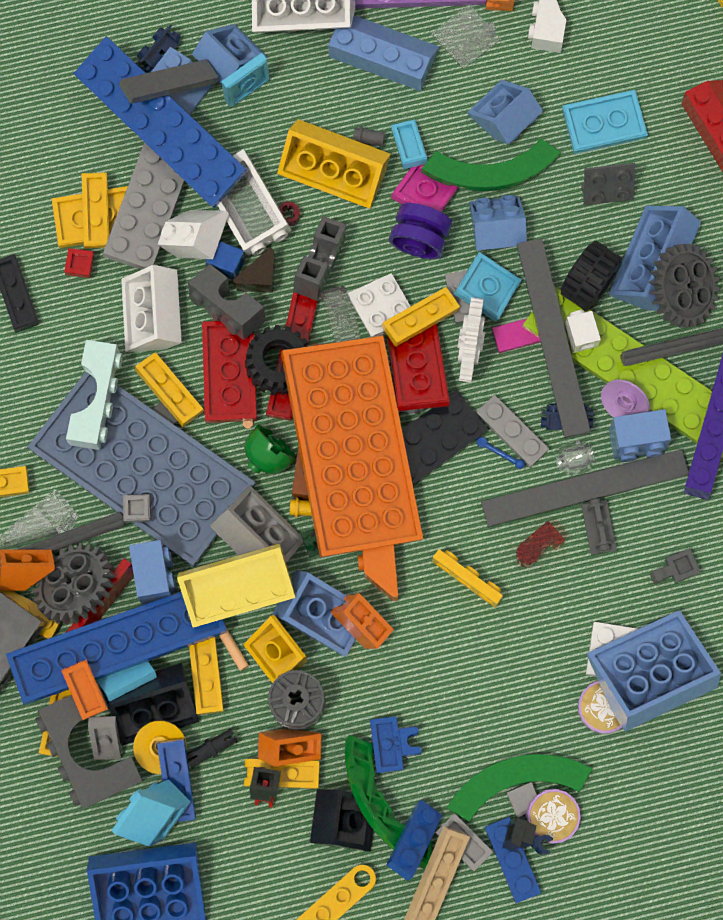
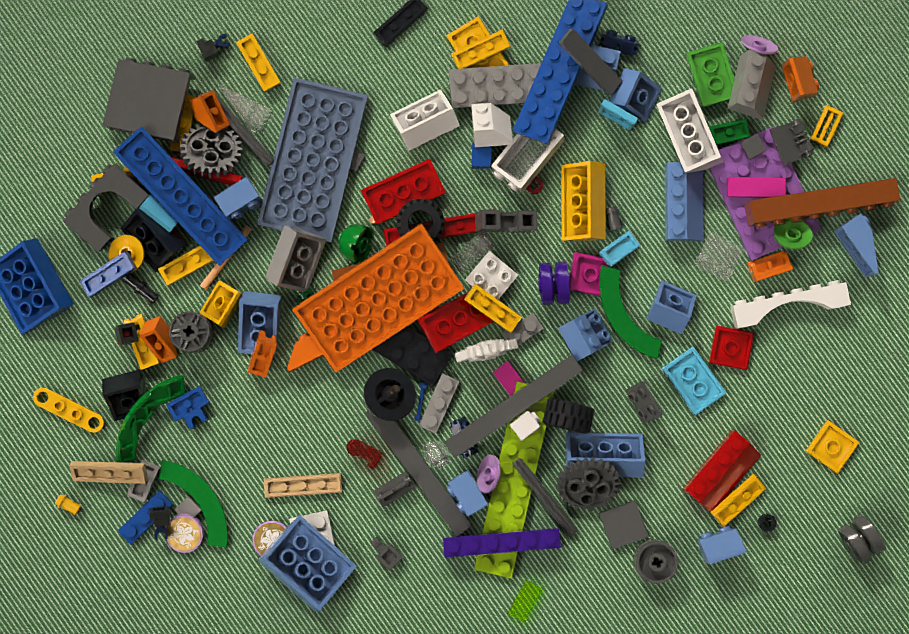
camera: 65 degrees right, 10 degrees up
(79, 263) = (439, 55): red plate -> none
(84, 689) = (138, 188): orange tile -> none
(88, 426) = (322, 113): light aqua arch -> none
(104, 737) = (116, 214): light grey plate -> none
(136, 508) = (280, 169): light grey tile -> none
(151, 813) = (77, 267): medium azure slope -> none
(169, 389) = (373, 156): yellow plate -> none
(236, 585) = (249, 259): light yellow slope -> none
(238, 315) = (442, 183): dark grey arch -> none
(258, 275) = (480, 184): dark brown slope -> none
(300, 508) = (326, 278): yellow pin -> none
(414, 840) = (129, 447): blue plate -> none
(468, 577) = (323, 413): yellow plate -> none
(478, 482) = (389, 394): none -> black piece
(488, 282) = (535, 345): medium azure tile -> none
(549, 640) = (302, 485): none -> tan tile
(581, 64) = (731, 347): none -> red tile

